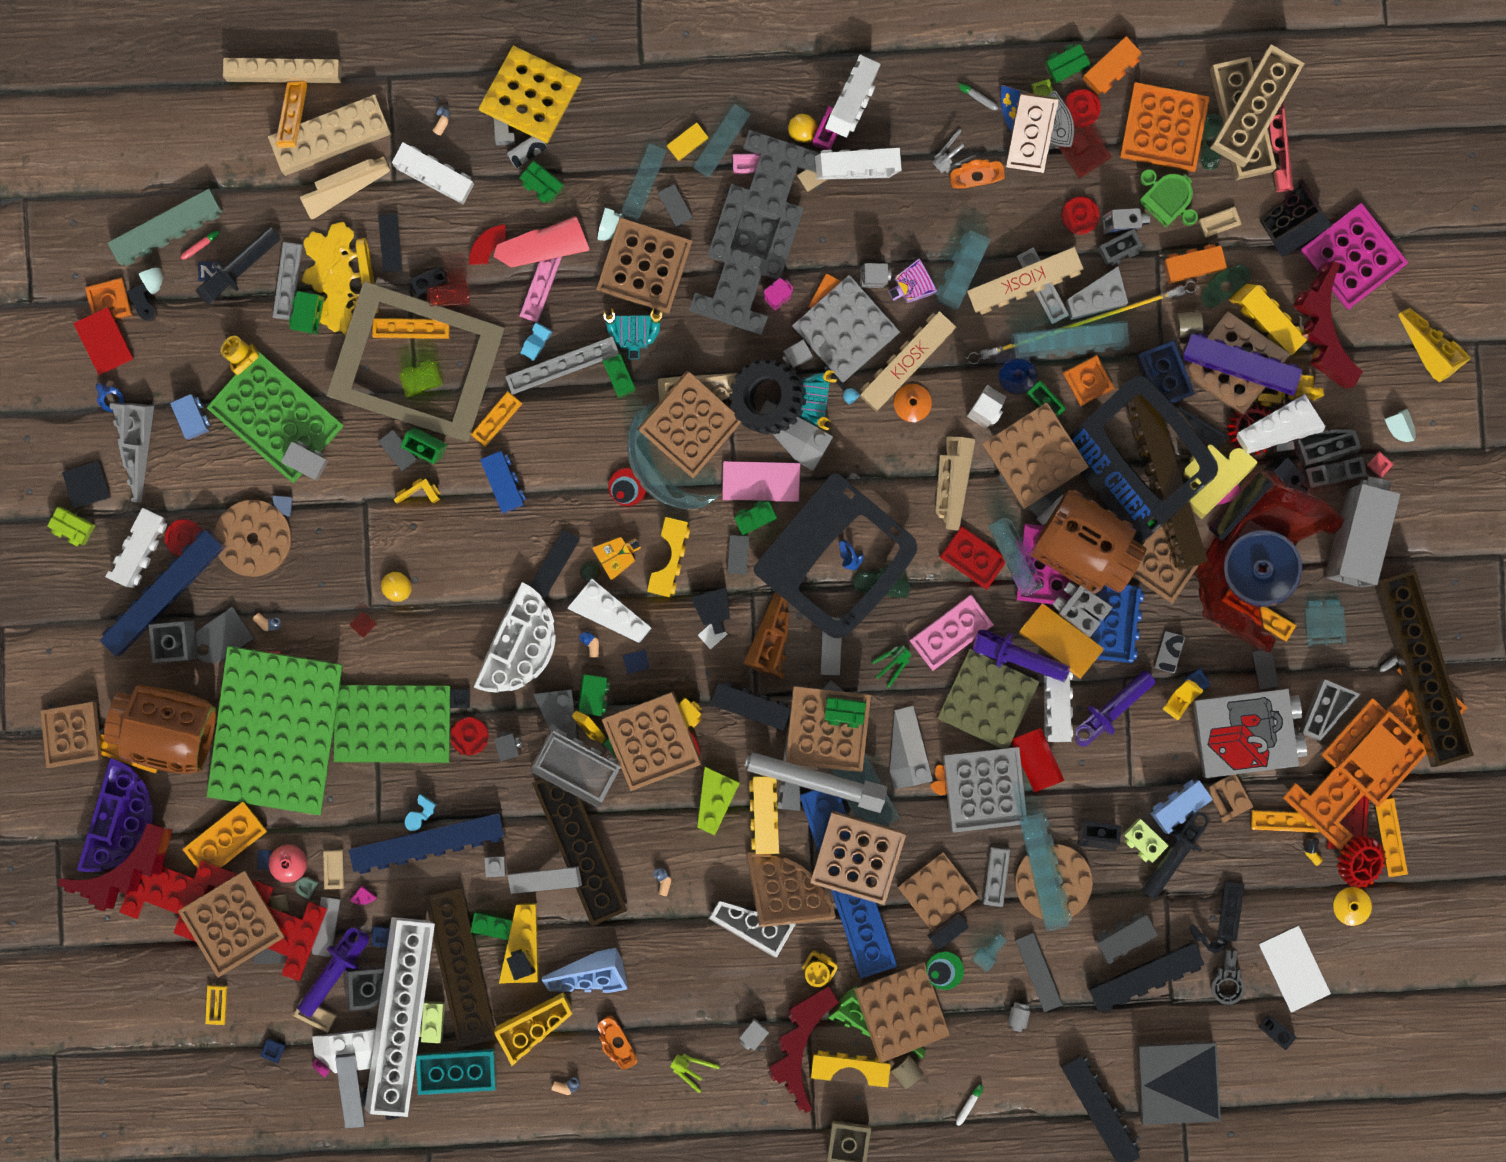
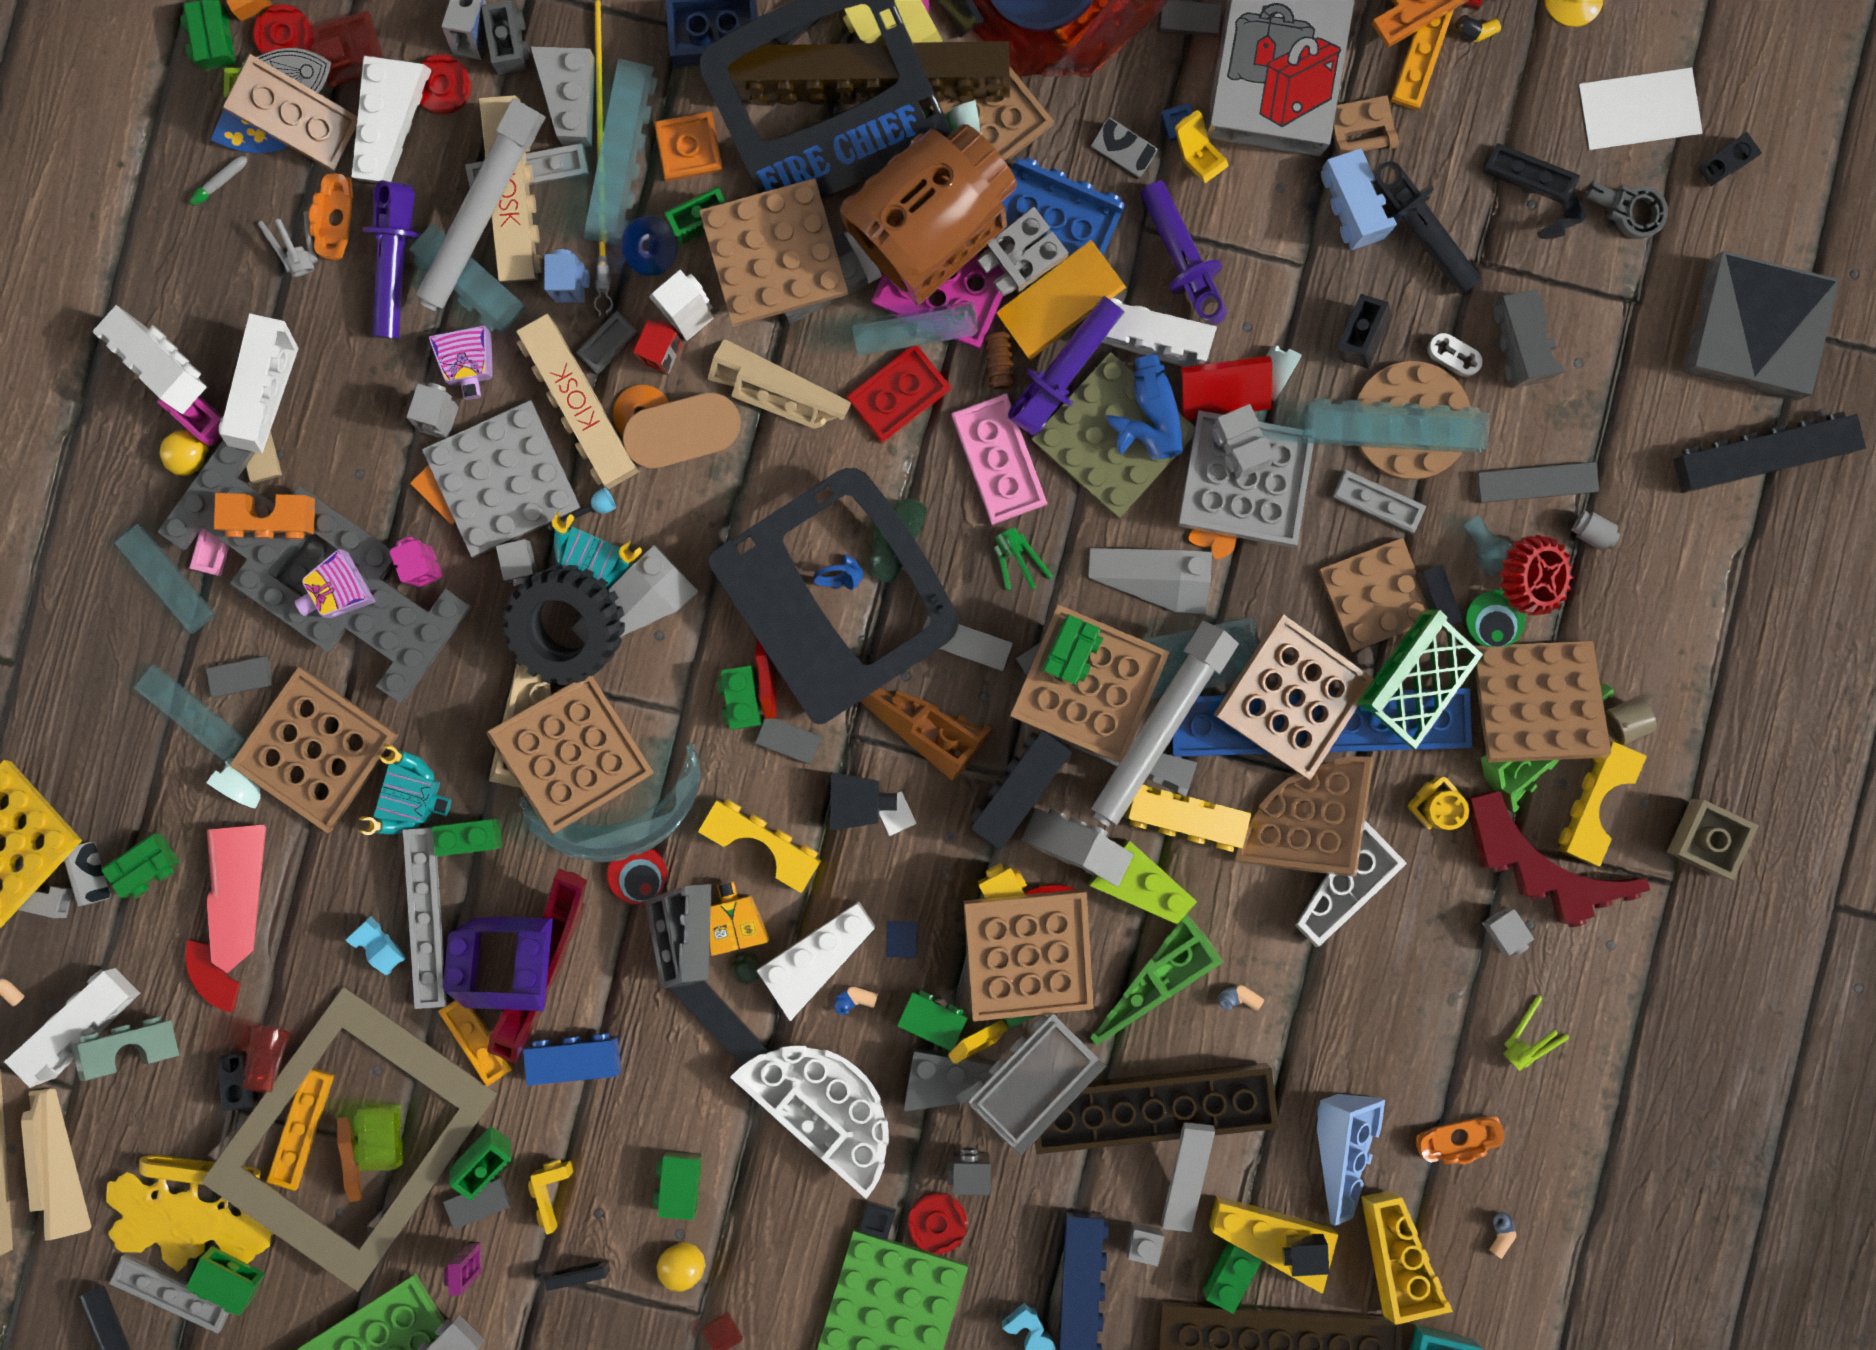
camera: 70 degrees left, 0 degrees up
(359, 455) = (463, 1269): none -> magenta plate
(373, 525) = (577, 1275): none -> black tile
(390, 243) = (162, 1121): black tile -> none
(402, 364) = (351, 1173): none -> dark orange tile
(421, 197) = (97, 1054): none -> sand green arch
(446, 570) = (678, 1185): none -> green brick
(540, 289) = (301, 916): bright pink tile -> none
(552, 441) = (529, 970): none -> dark purple wedge
(555, 446) = (566, 910): none -> dark red arch
(600, 525) = (681, 934): none -> dark grey wedge
(672, 836) = (1176, 964): none -> bright green wedge
(687, 142) = (150, 630): yellow tile -> none
(727, 751) = (1077, 845): none -> light grey wedge
(747, 250) = (334, 588): none -> torso
(761, 481) = (690, 673): bright pink tile -> none
(769, 531) = (767, 682): none -> red tile
(782, 211) = (237, 515): none -> orange arch
(900, 918) = (1404, 660): none -> fence
(909, 431) = (681, 430): none -> medium nougat tile
(950, 367) = (607, 342): none -> dark grey tile
(956, 401) = (658, 346): none -> red brick
(969, 1104) = (1702, 642): white piece -> none
(978, 979) = (1528, 573): none -> red gear
(981, 214) = (392, 228): none -> dark purple piece
(982, 331) = (565, 277): none -> medium blue brick
(1006, 779) = (1242, 442): none -> light grey brick
(1007, 266) = (515, 134): none -> light grey brick
(1013, 614) = (999, 360): none -> reddish brown piece
(1014, 720) = (1158, 403): none -> blue piece
(1055, 188) = (385, 114): none -> white wedge
(1061, 790) = (1282, 367): none -> light aqua brick
(1098, 895) = (1458, 349): none -> white beam
(1144, 840) = (1390, 267): yellowish green brick -> none
(1146, 976) = (1592, 326): black brick -> none
(1153, 547) = (963, 114): none -> light aqua brick

